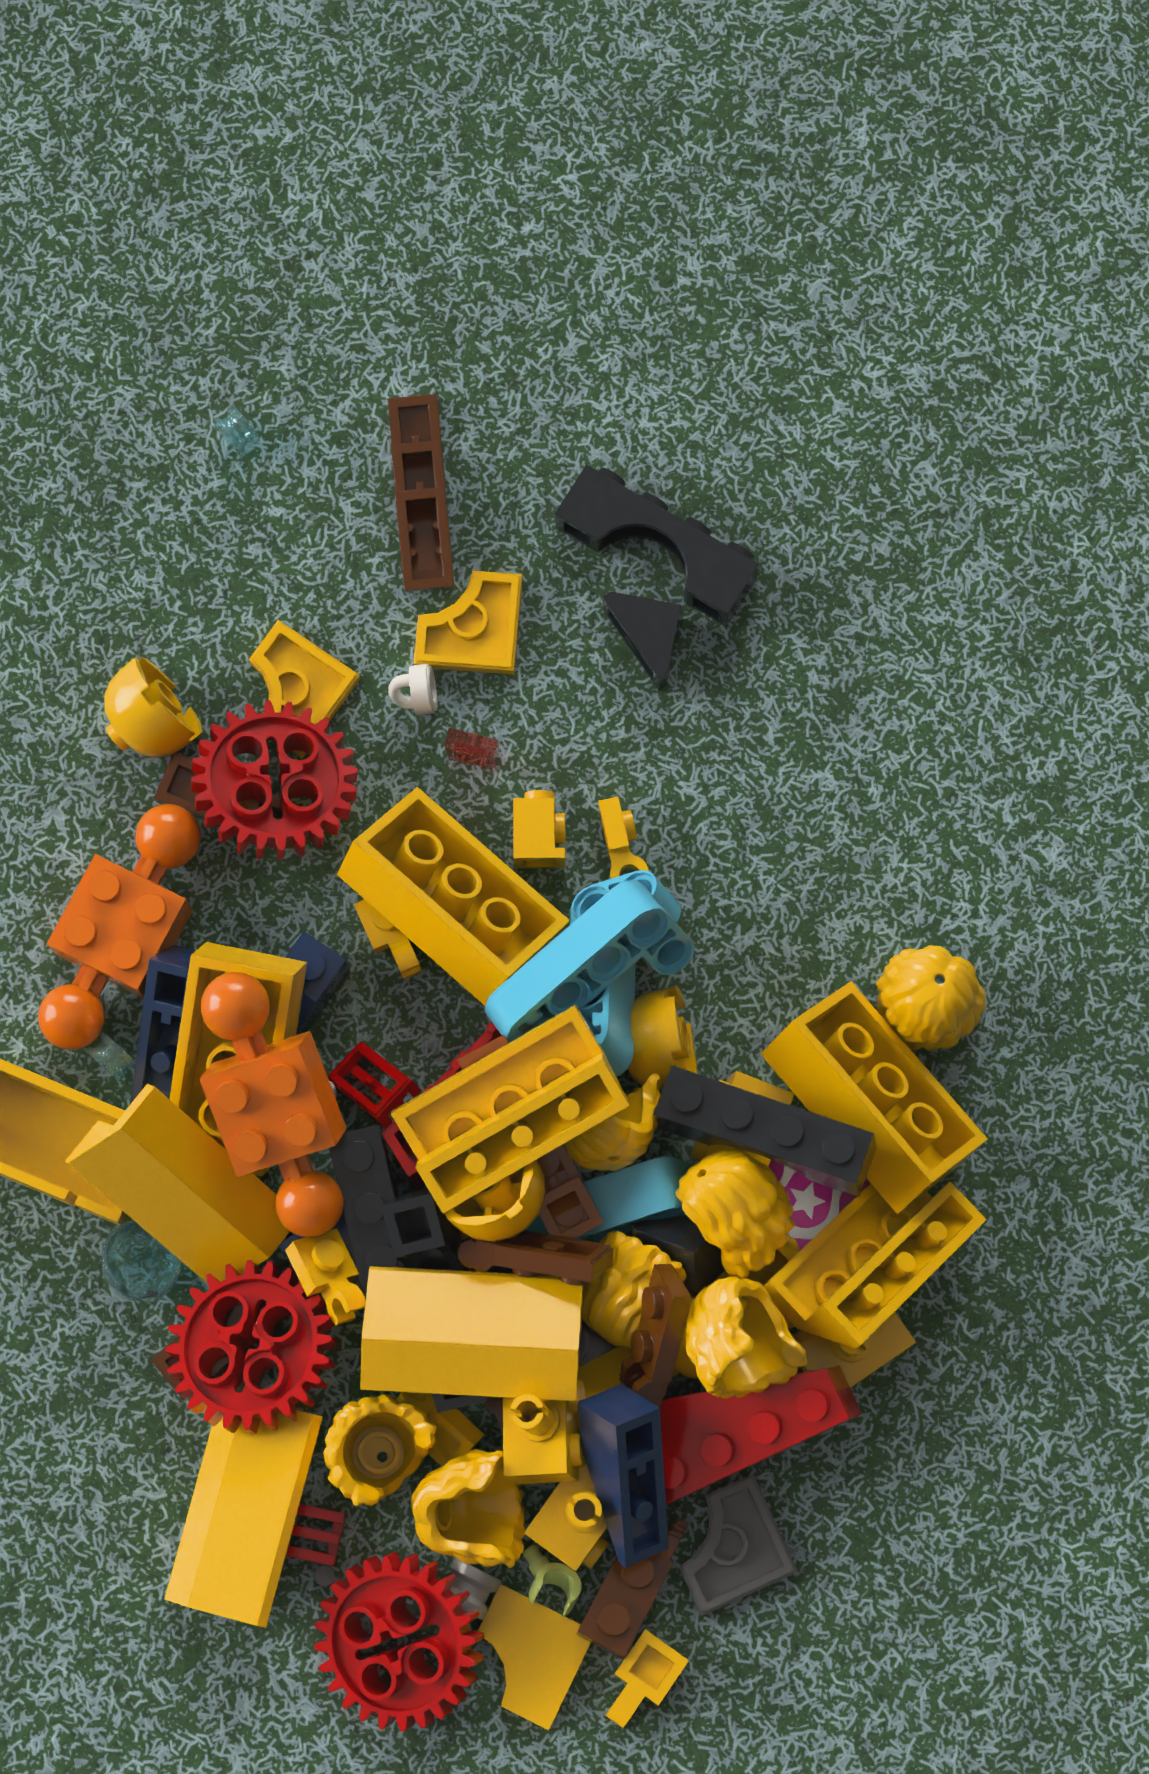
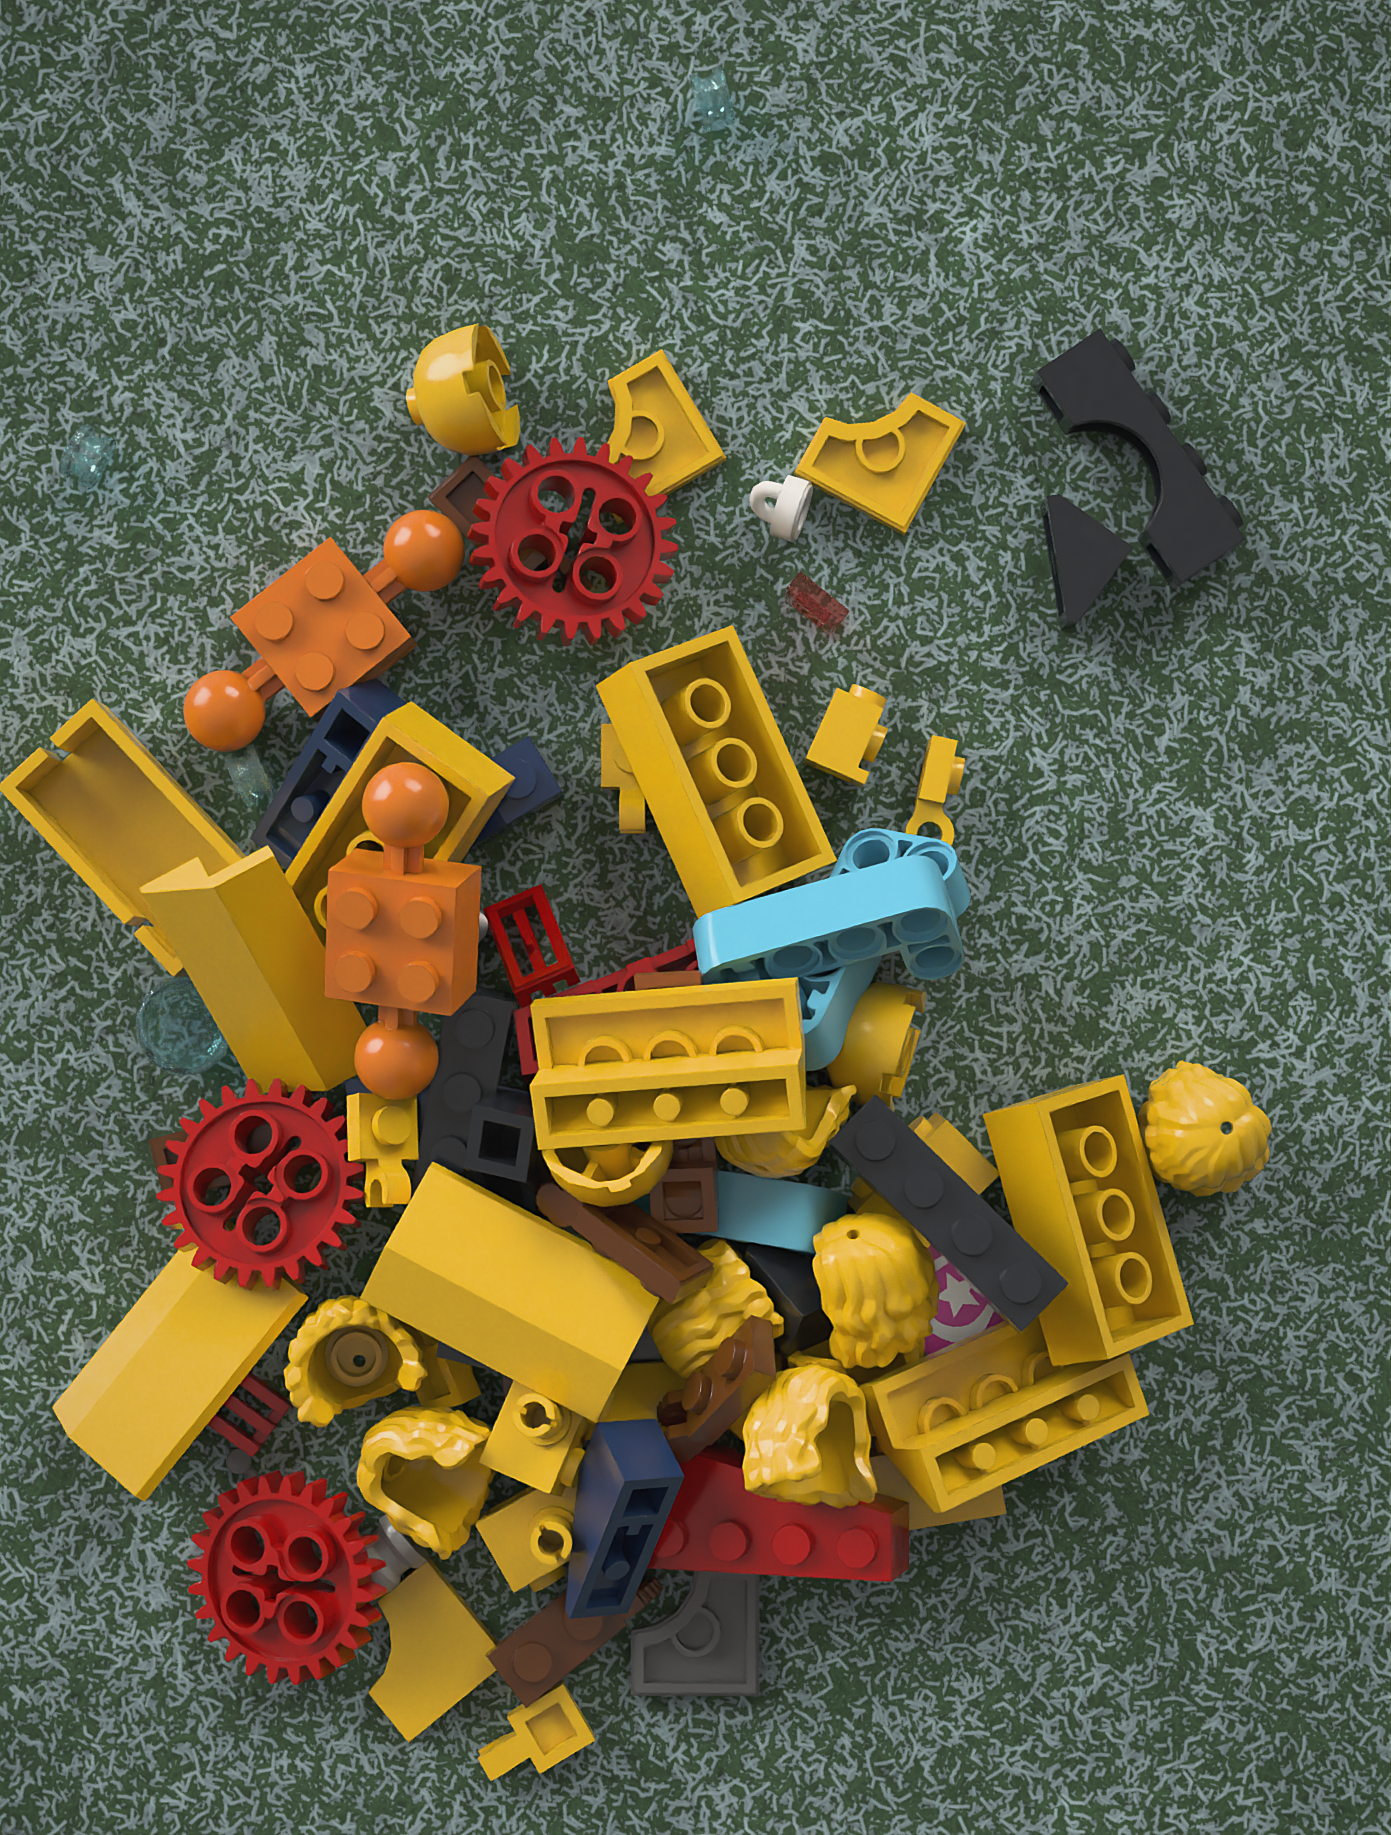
camera: 20 degrees right, 10 degrees up
(420, 493) = (893, 271): reddish brown slope -> none
(552, 1573) = (481, 1569): yellowish green piece -> none

